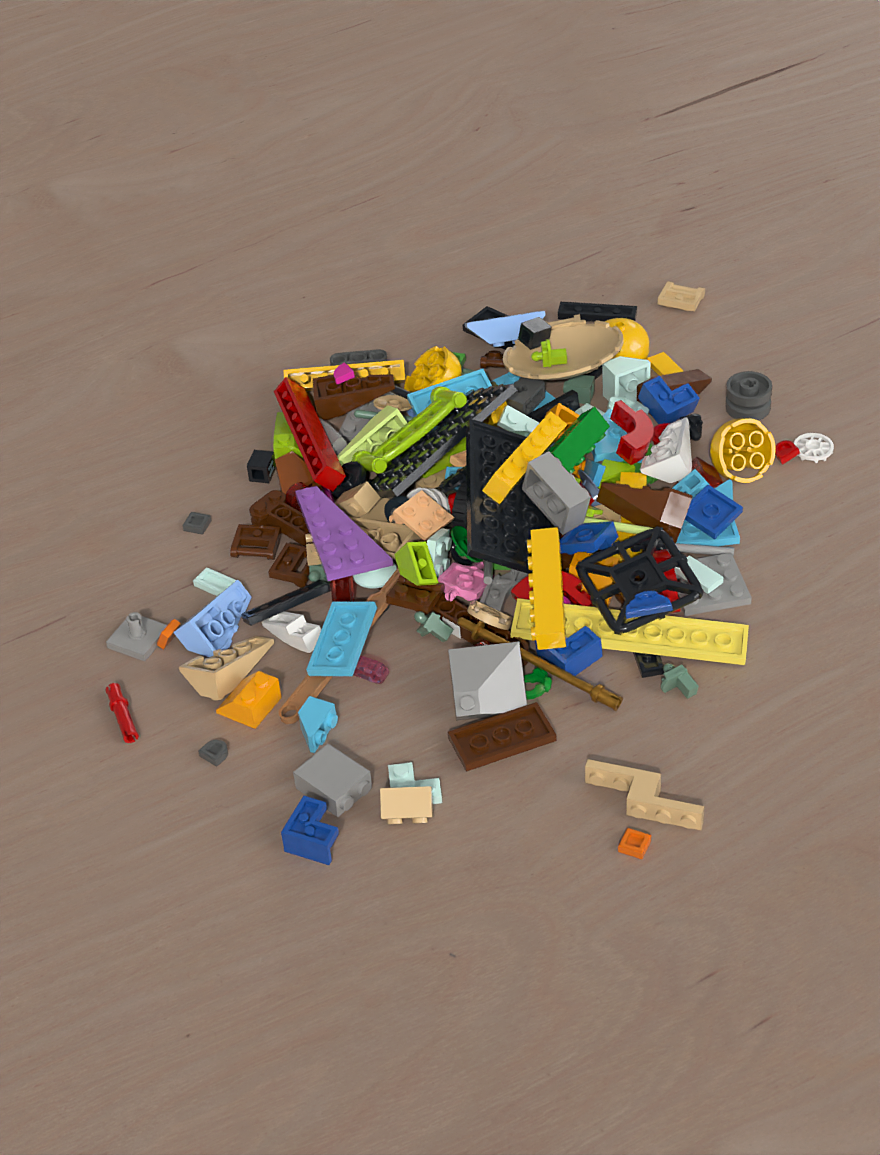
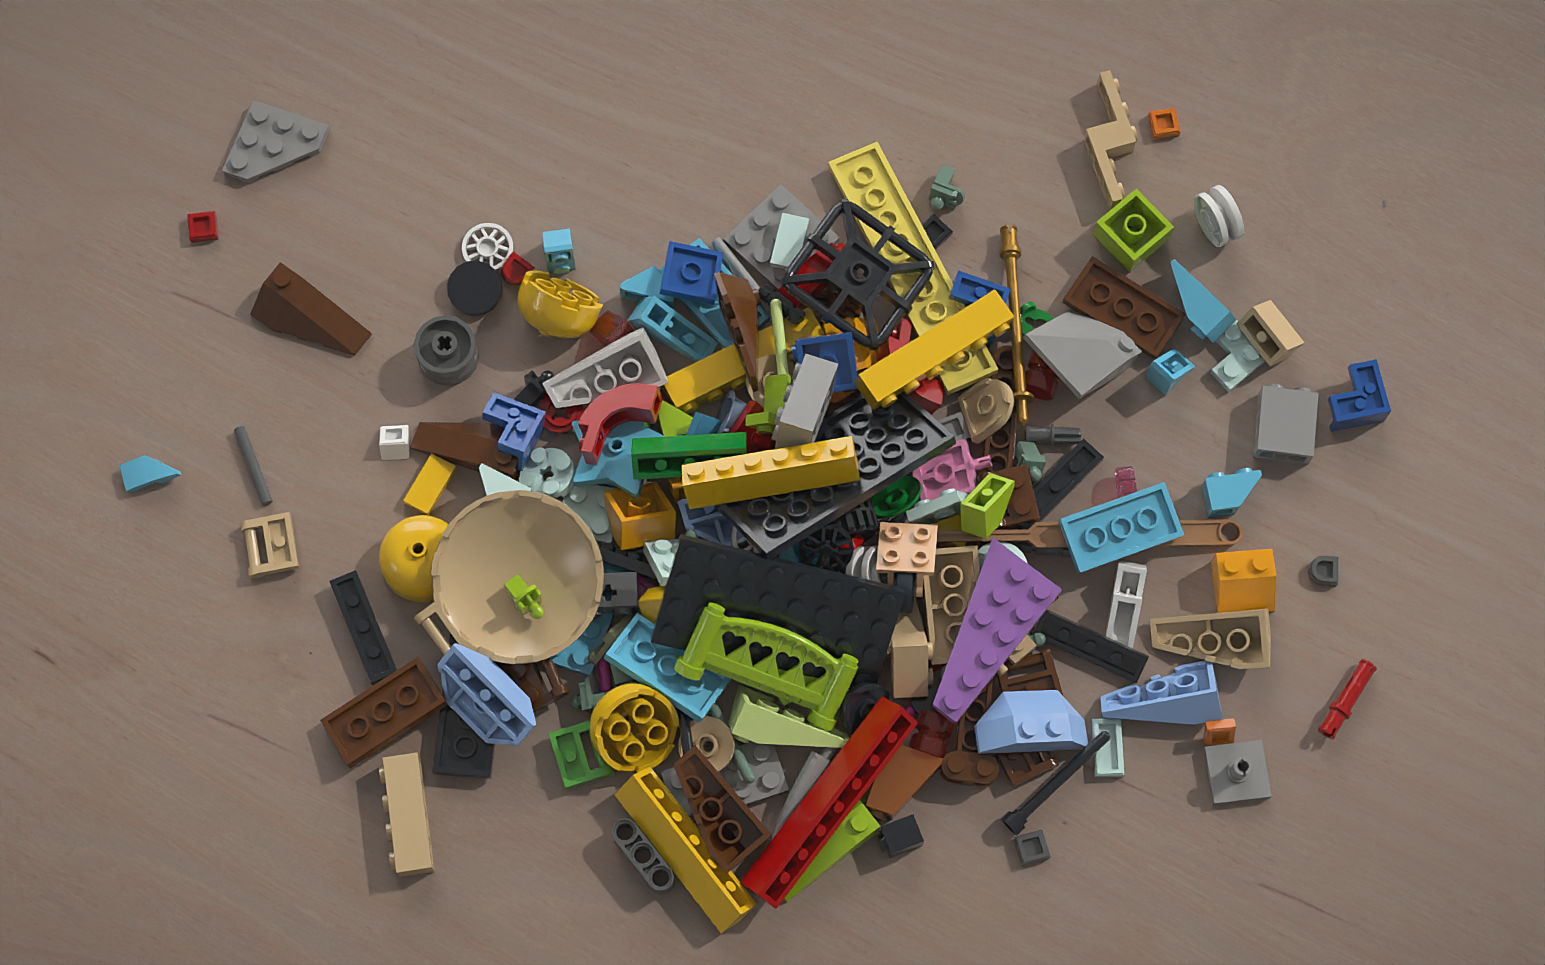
camera: 130 degrees left, 30 degrees up
(218, 518) = (1015, 820): none -> black piece
(260, 542) = (1030, 723): none -> light blue wedge
(343, 373) = (706, 829): dark pink tile -> none
(406, 639) = (1064, 479): none -> black plate
(431, 733) = (1169, 370): none -> medium azure slope
(441, 653) = (1052, 435): none -> dark grey axle
(468, 774) = (1206, 312): none -> medium azure slope
(471, 291) = (407, 814): none -> tan brick
(523, 815) = (1218, 216): none -> white wheel
(534, 332) = (498, 634): black brick -> none
(538, 294) = (384, 712): none -> reddish brown plate
(555, 763) = (1133, 230): none -> lime brick
(647, 603) = (894, 241): blue tile -> none
(708, 364) = (394, 442): none -> white slope
(739, 307) = (253, 465): none -> dark grey bar
(768, 267) = (146, 471): none -> medium azure slope
(782, 465) = (559, 251): none -> medium azure slope
(787, 427) = (474, 288): none -> black tile
(830, 356) = (299, 309): none -> reddish brown wedge

